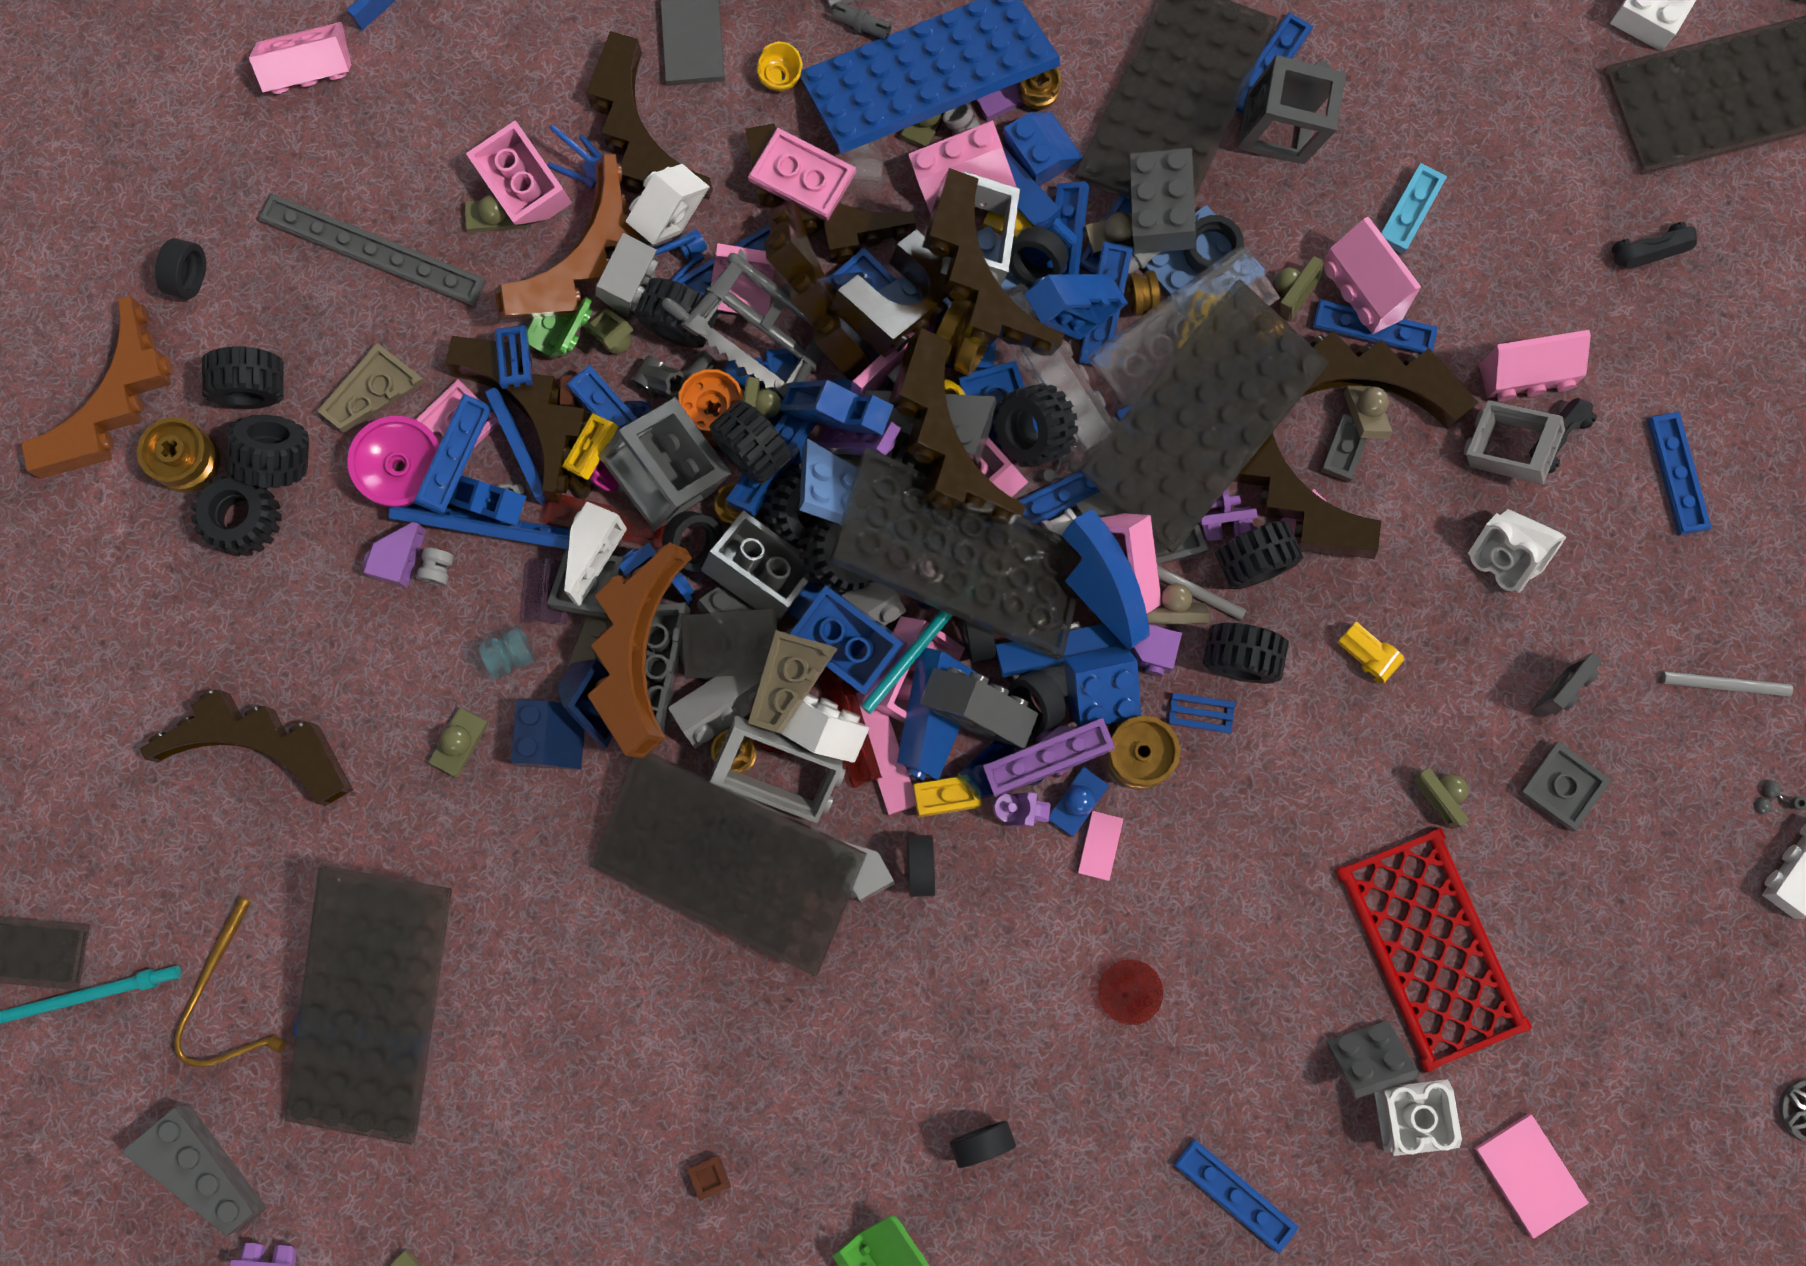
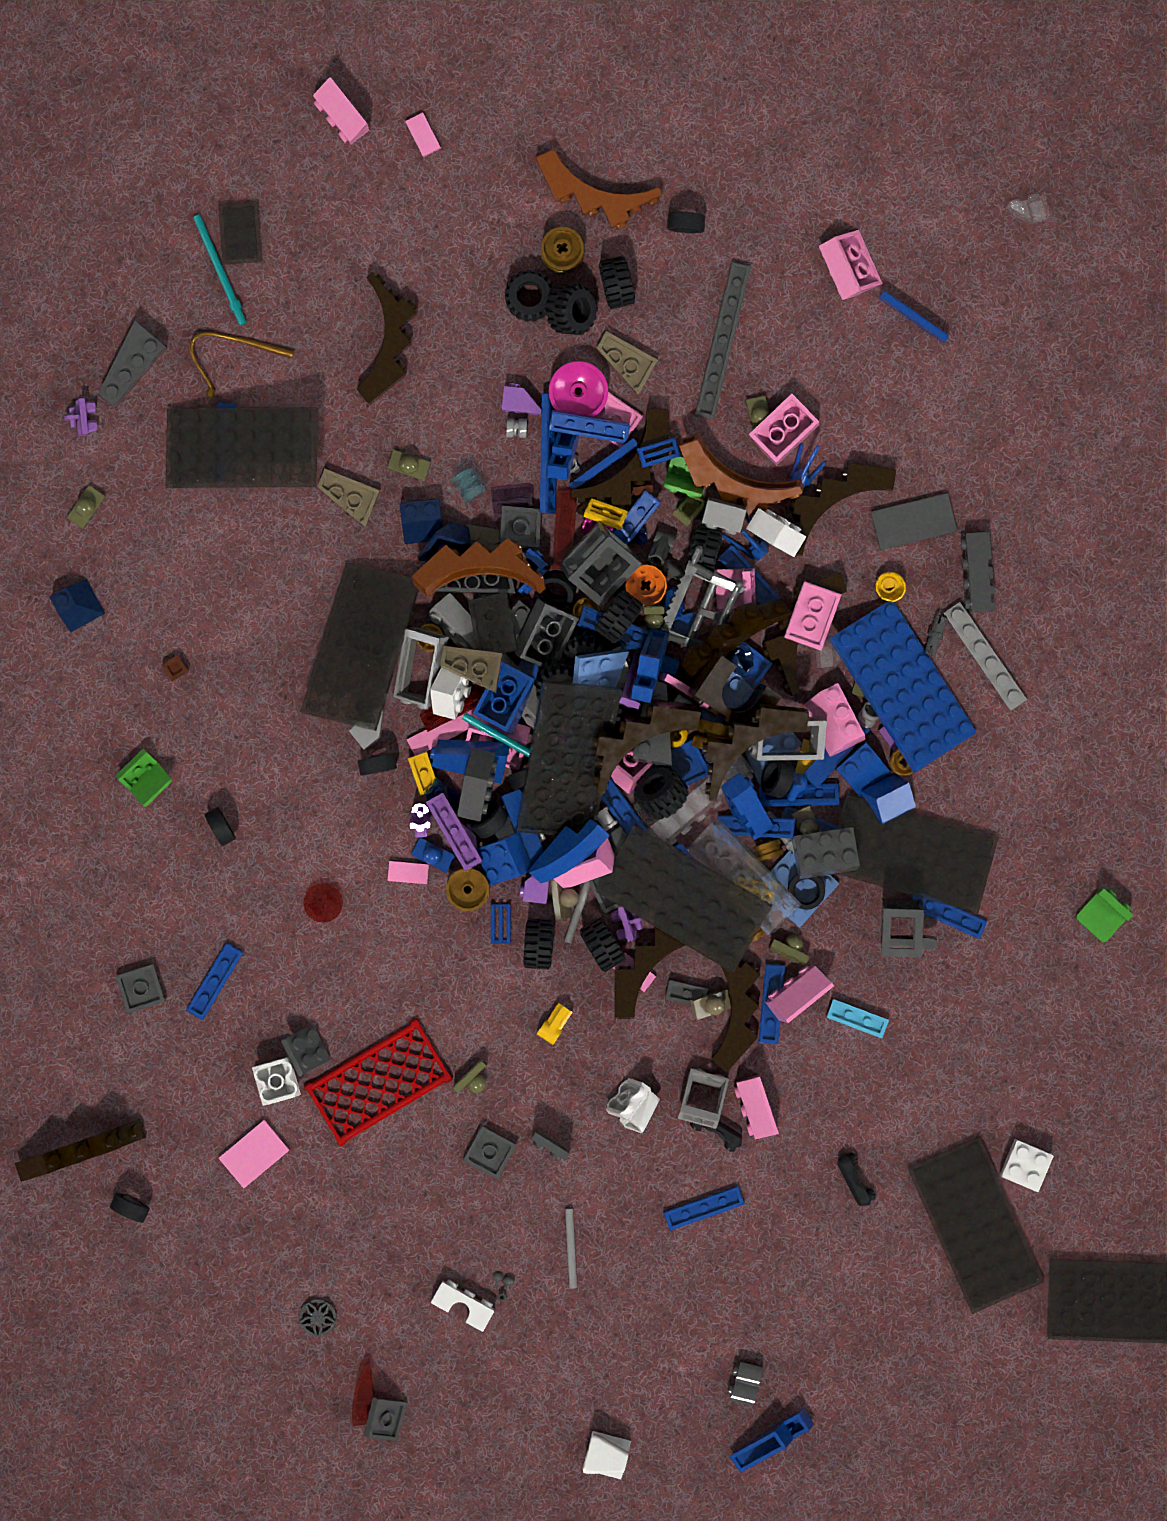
camera: 80 degrees right, 10 degrees up
(485, 842) = (350, 495): none -> dark tan wing
(591, 543) = (546, 527): white slope -> none
(1089, 111) = (889, 798): none -> slope

